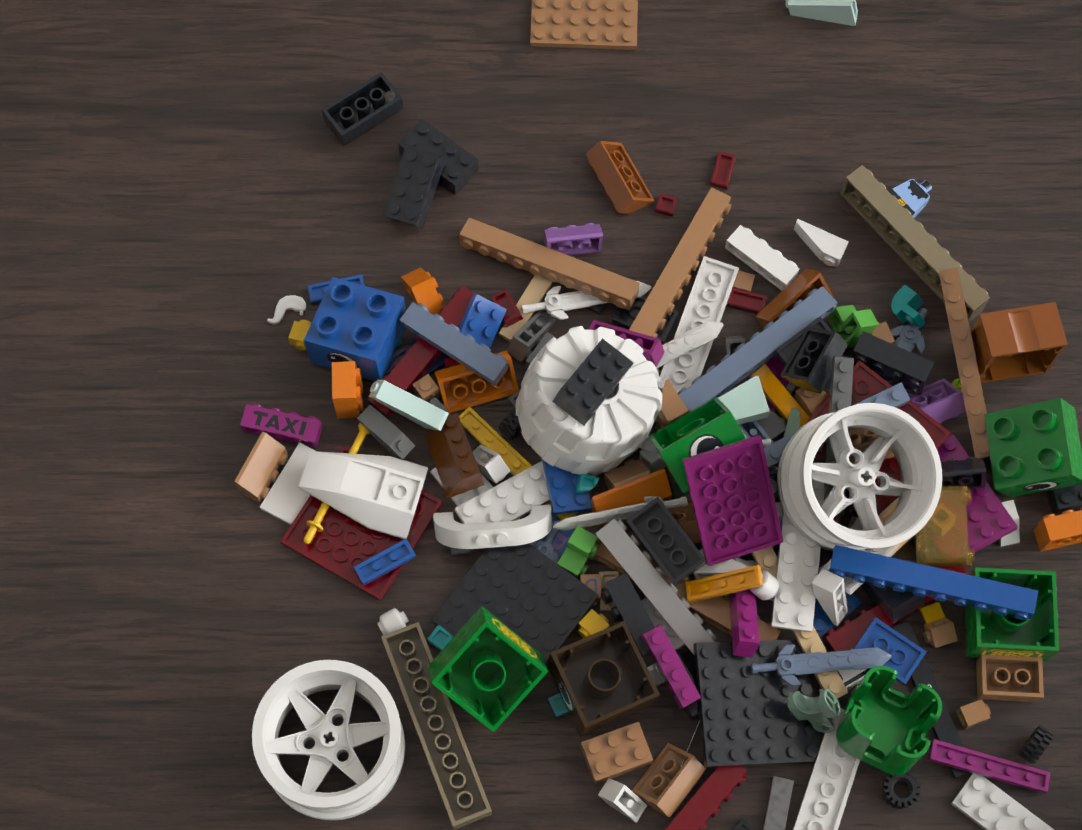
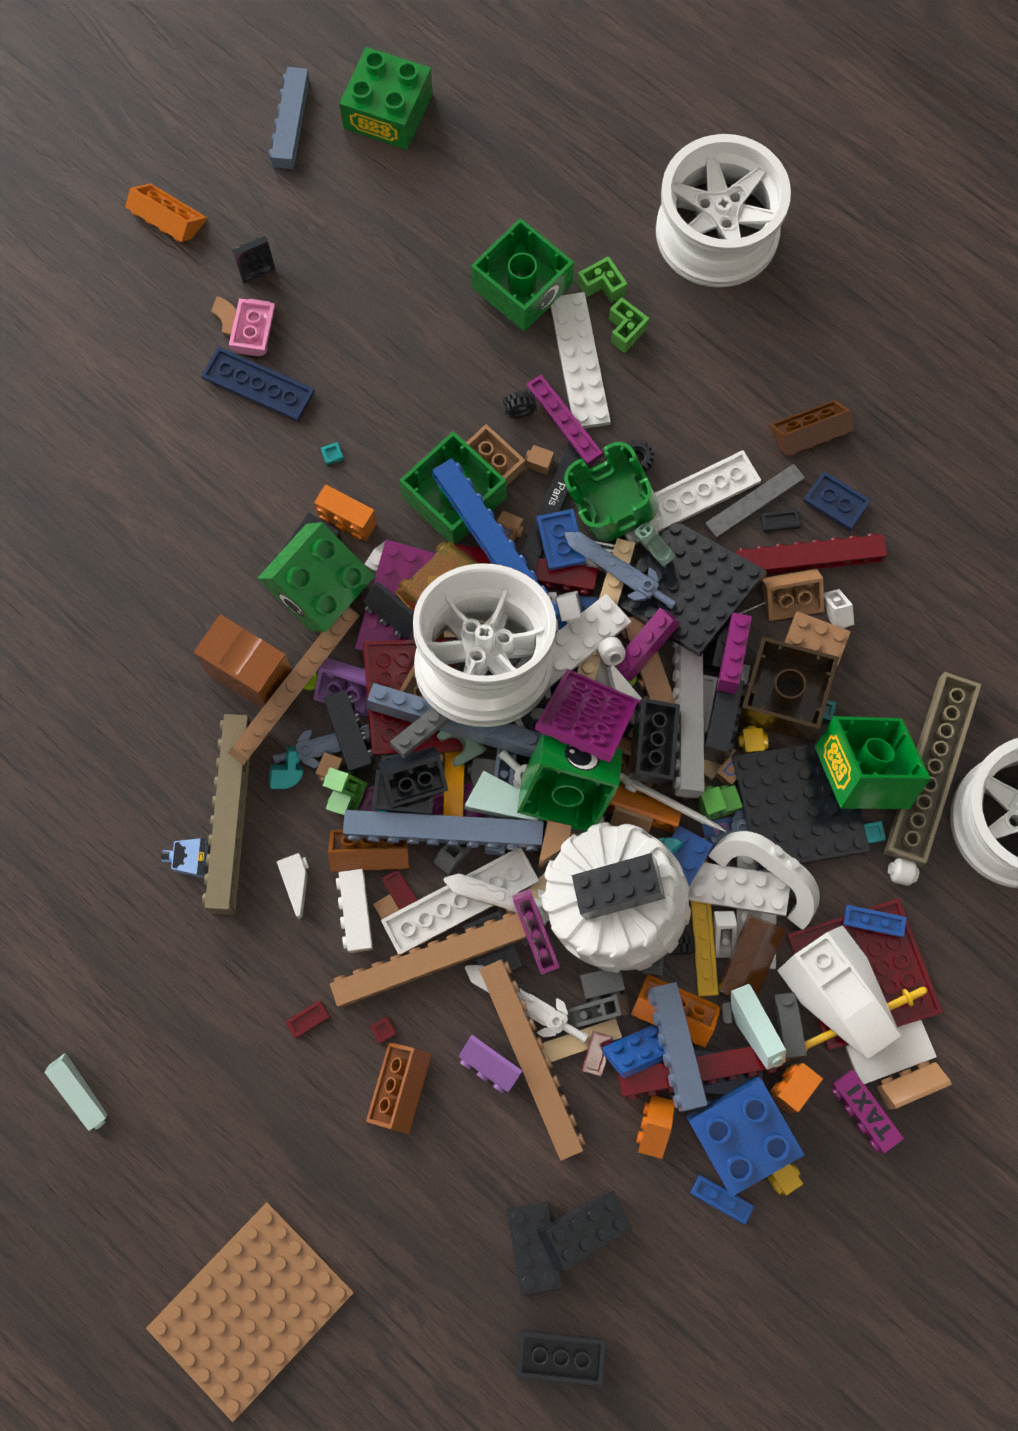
camera: 135 degrees left, 5 degrees up
(287, 303) = (774, 1224): white piece -> none
(426, 389) = (724, 1038): medium nougat brick -> none
(724, 583) = (638, 675): light orange tile -> none

